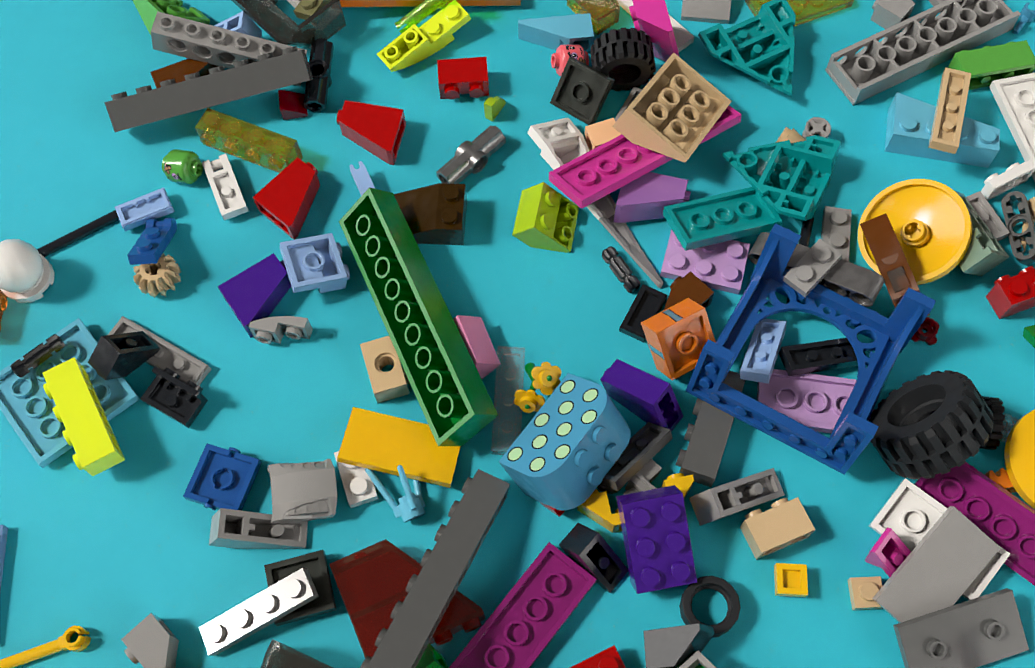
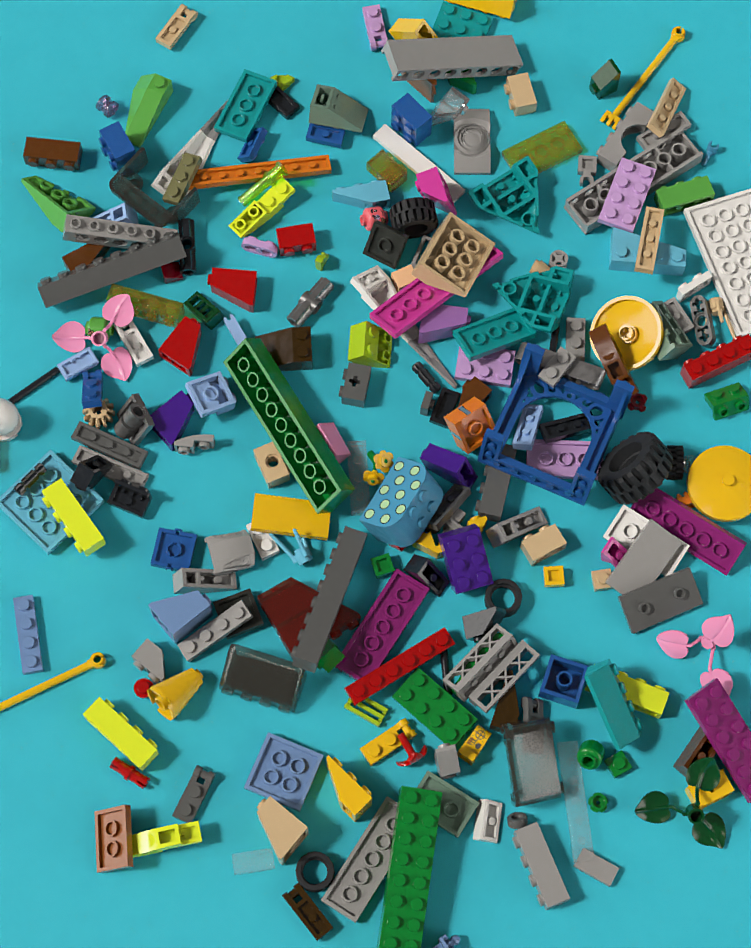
camera: 10 degrees left, 5 degrees up
(146, 170) = (117, 362): none -> bright pink plant
(163, 320) = (109, 445): none -> dark grey plate
(199, 289) = (133, 420): none -> flat silver plate
(210, 580) = (181, 613): none -> medium blue slope
(328, 157) = (212, 318): none -> dark green slope
(414, 83) = (253, 245): none -> lavender plate
(528, 258) = (355, 374): none -> dark grey brick
(528, 535) = (382, 565): none -> green plate
(619, 304) = (427, 404): none -> dark grey plate
(859, 23) = (587, 168): none -> light grey plate
(916, 55) = (626, 195): none -> lavender plate

